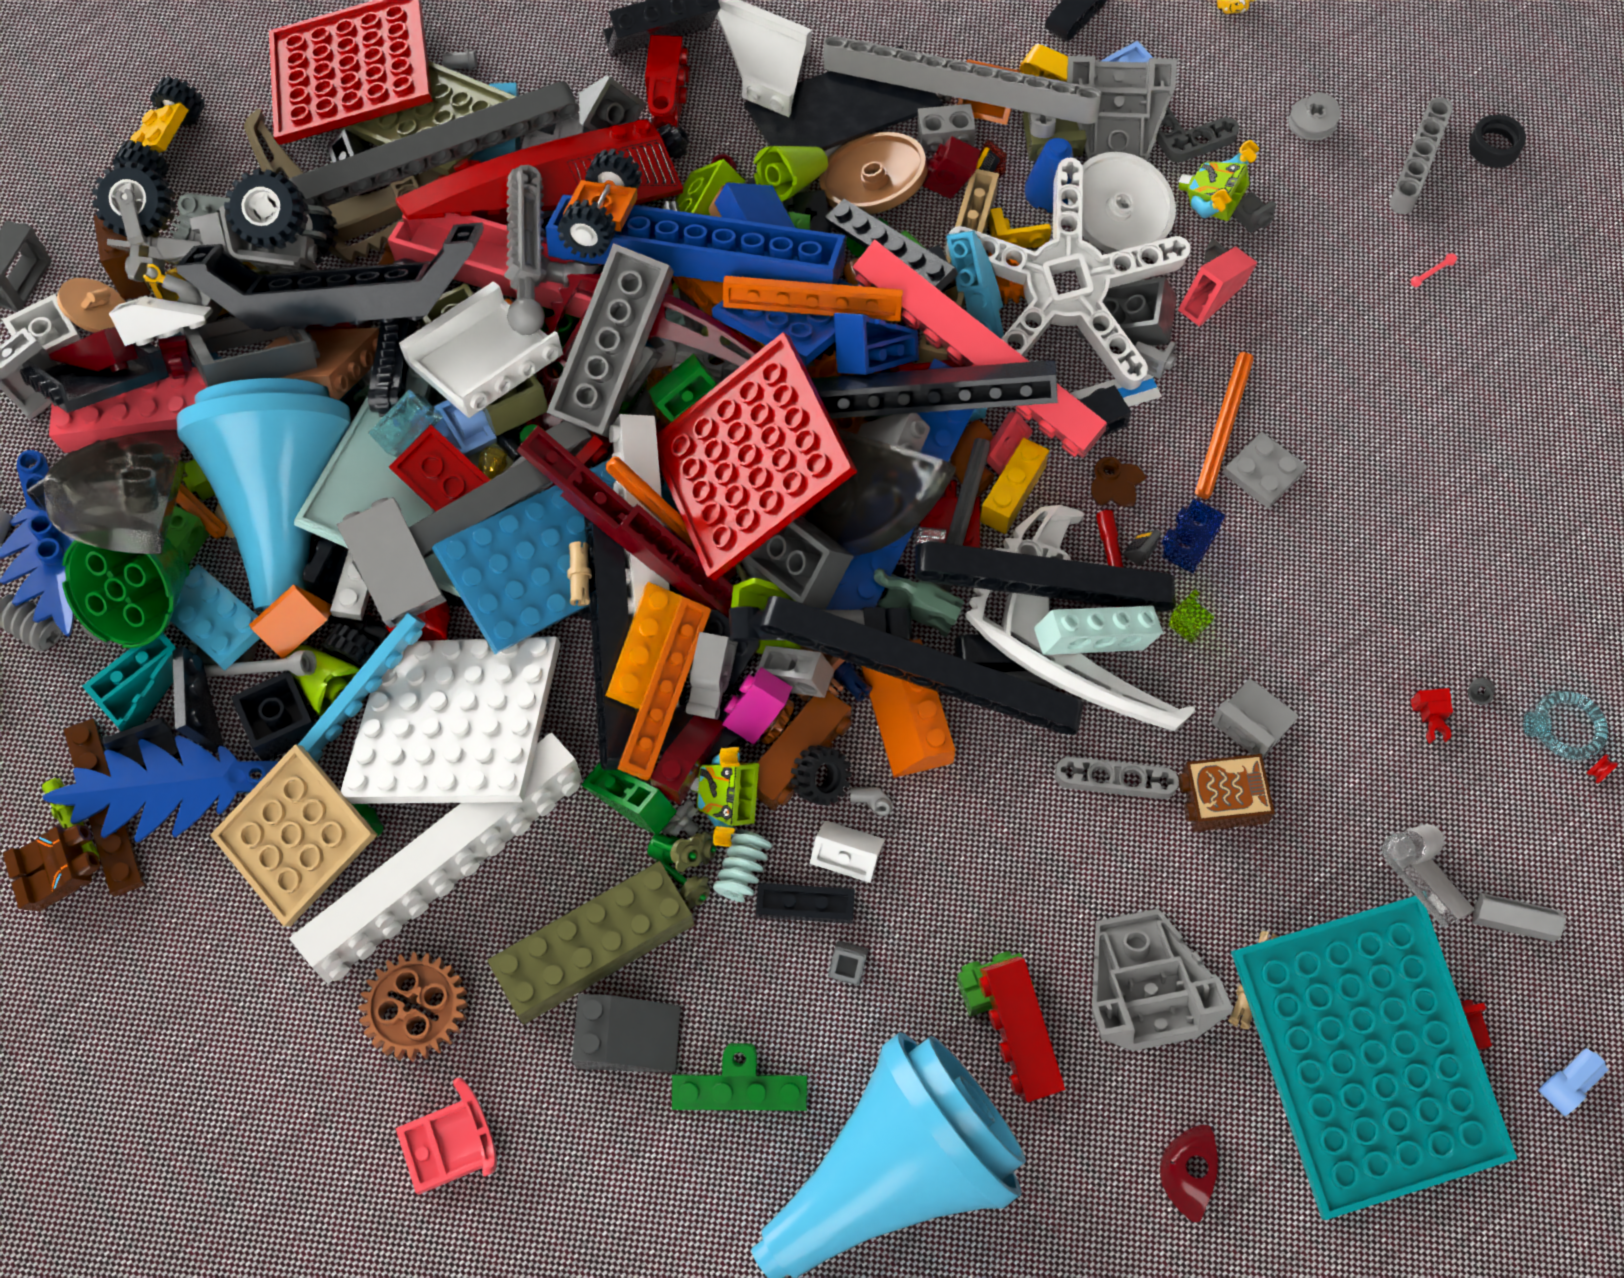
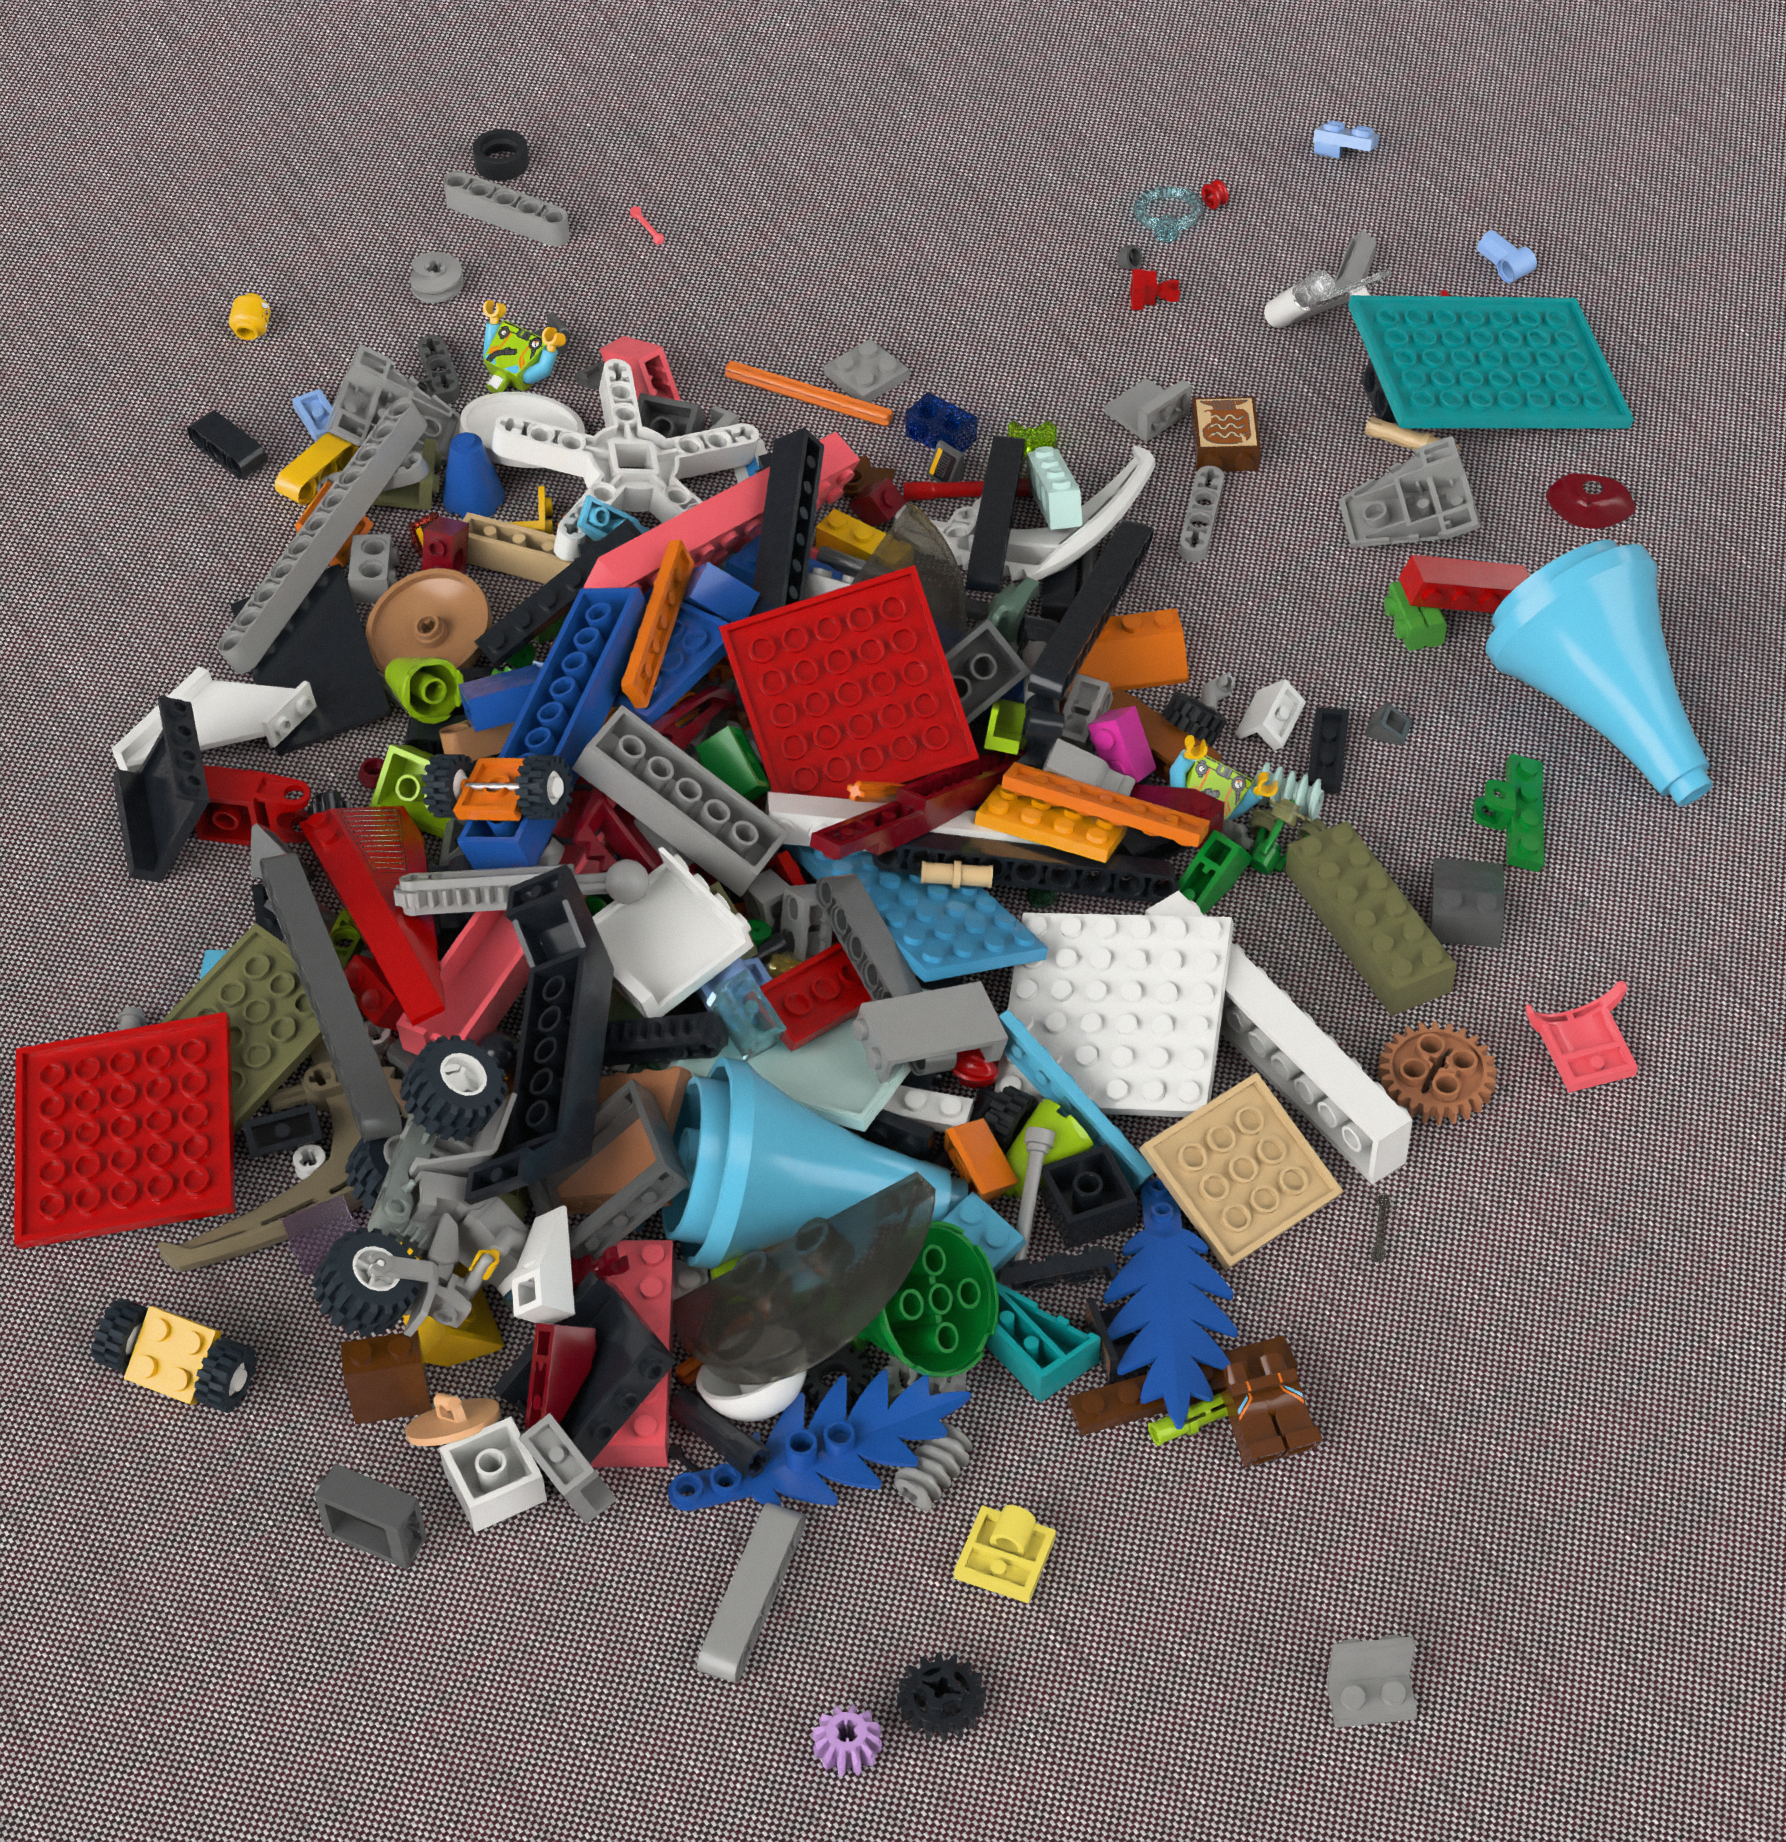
camera: 85 degrees left, 15 degrees down
(229, 960) = (1378, 1252): none -> clear smoke hinge
(1073, 489) = (878, 502): none -> dark red brick

